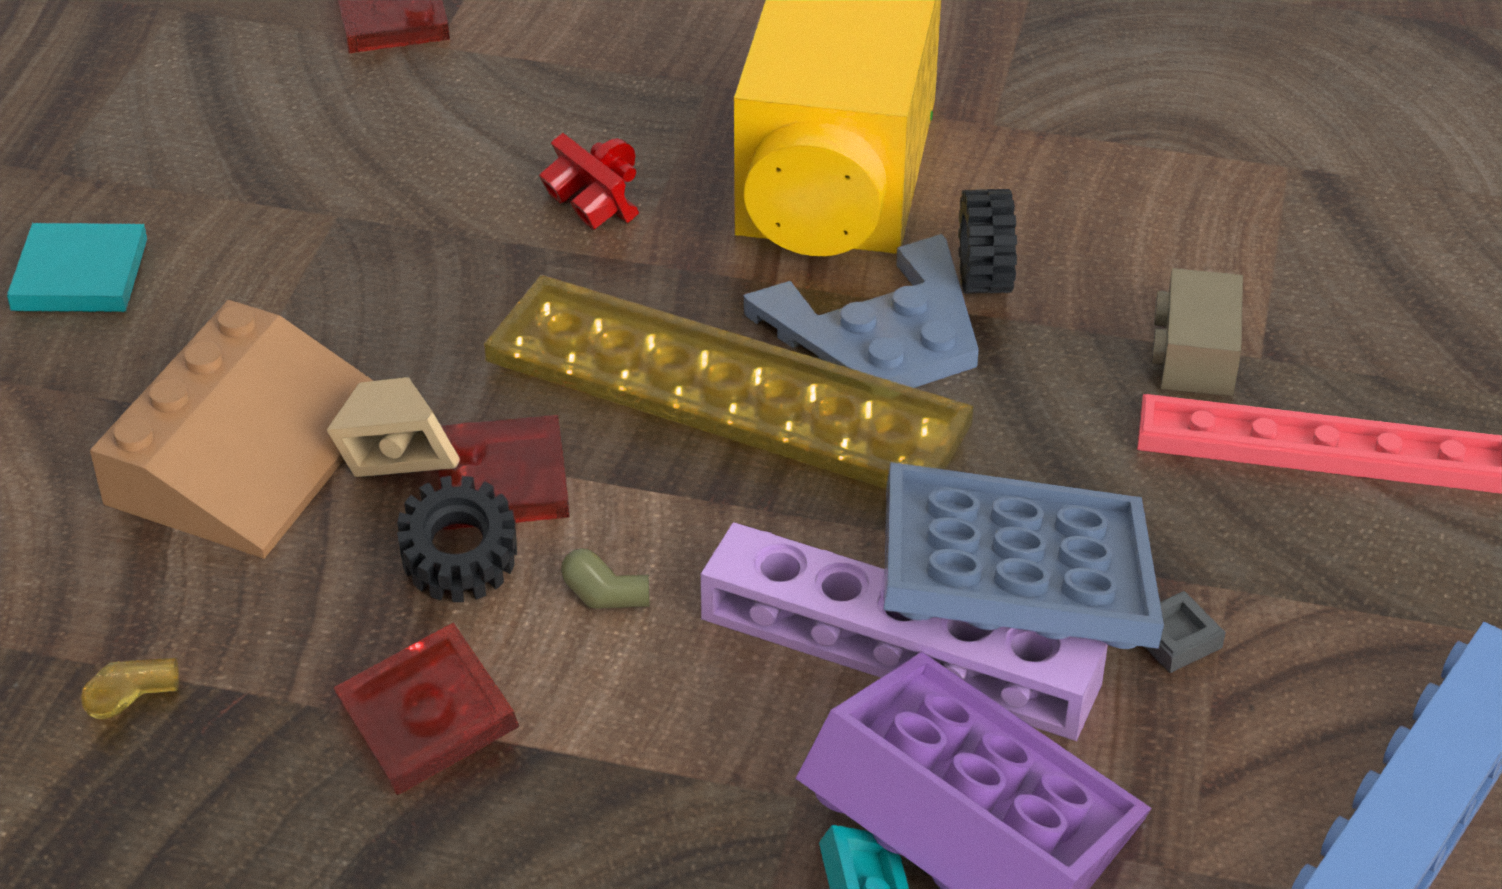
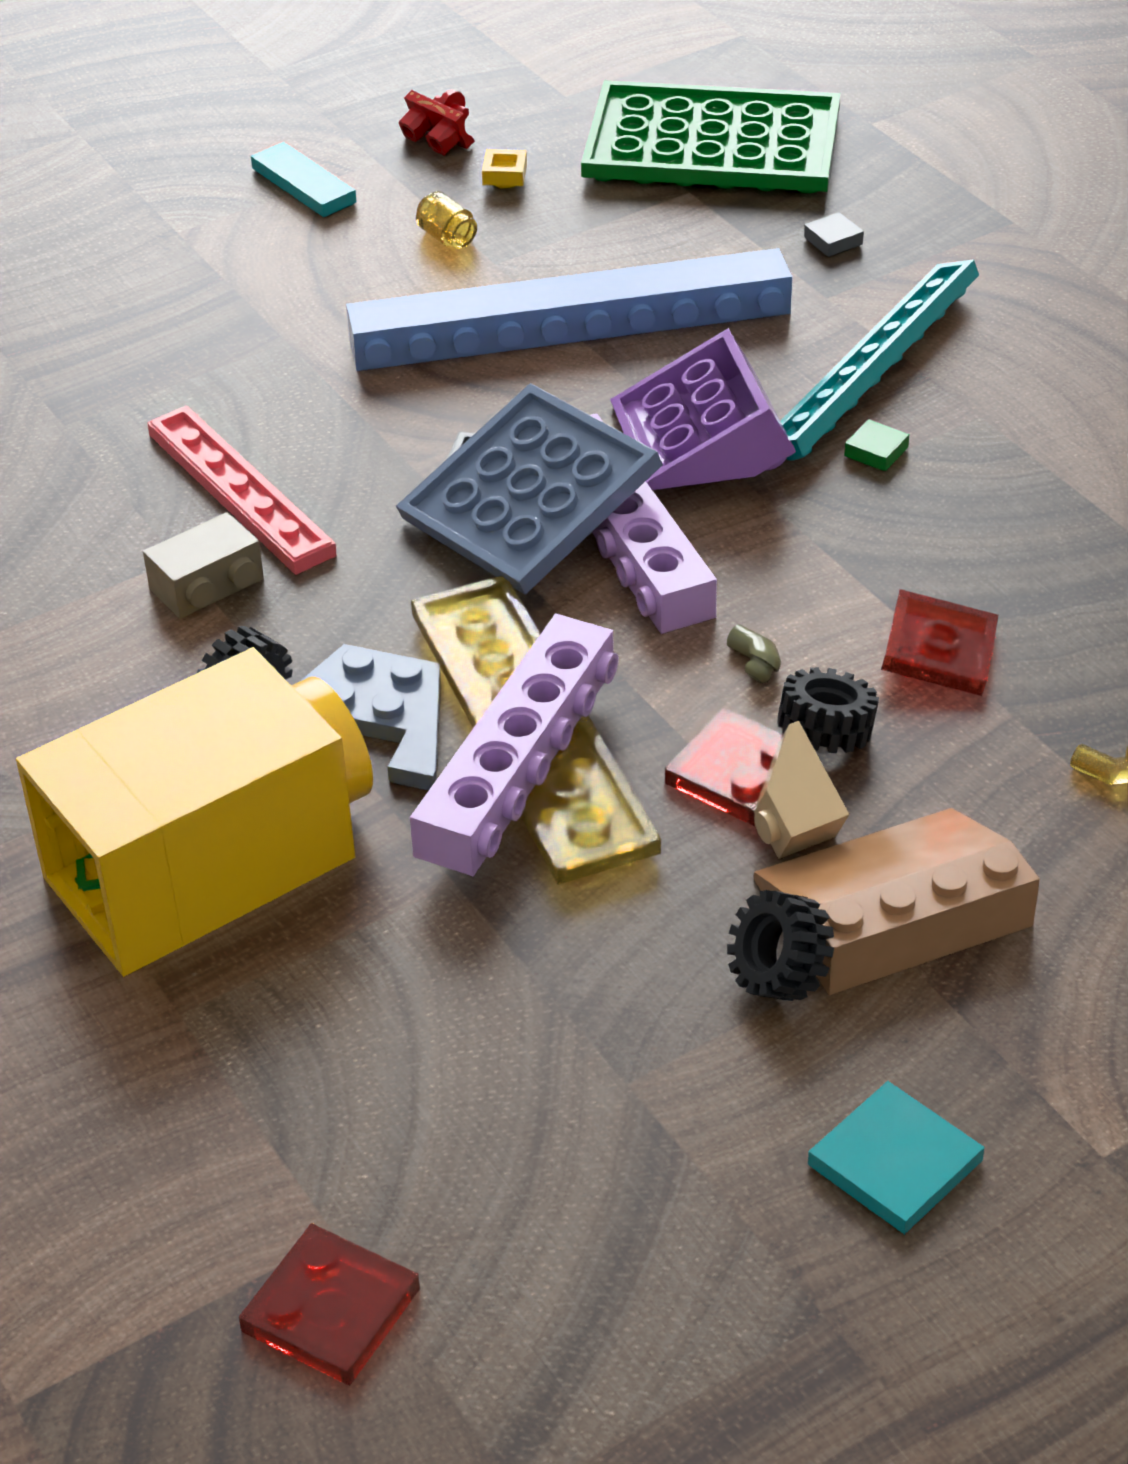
camera: 135 degrees left, 0 degrees up
(285, 292) = (802, 945): none -> black tyre
(599, 175) = (405, 936): red hips -> none
(684, 316) = (513, 745): none -> lavender brick

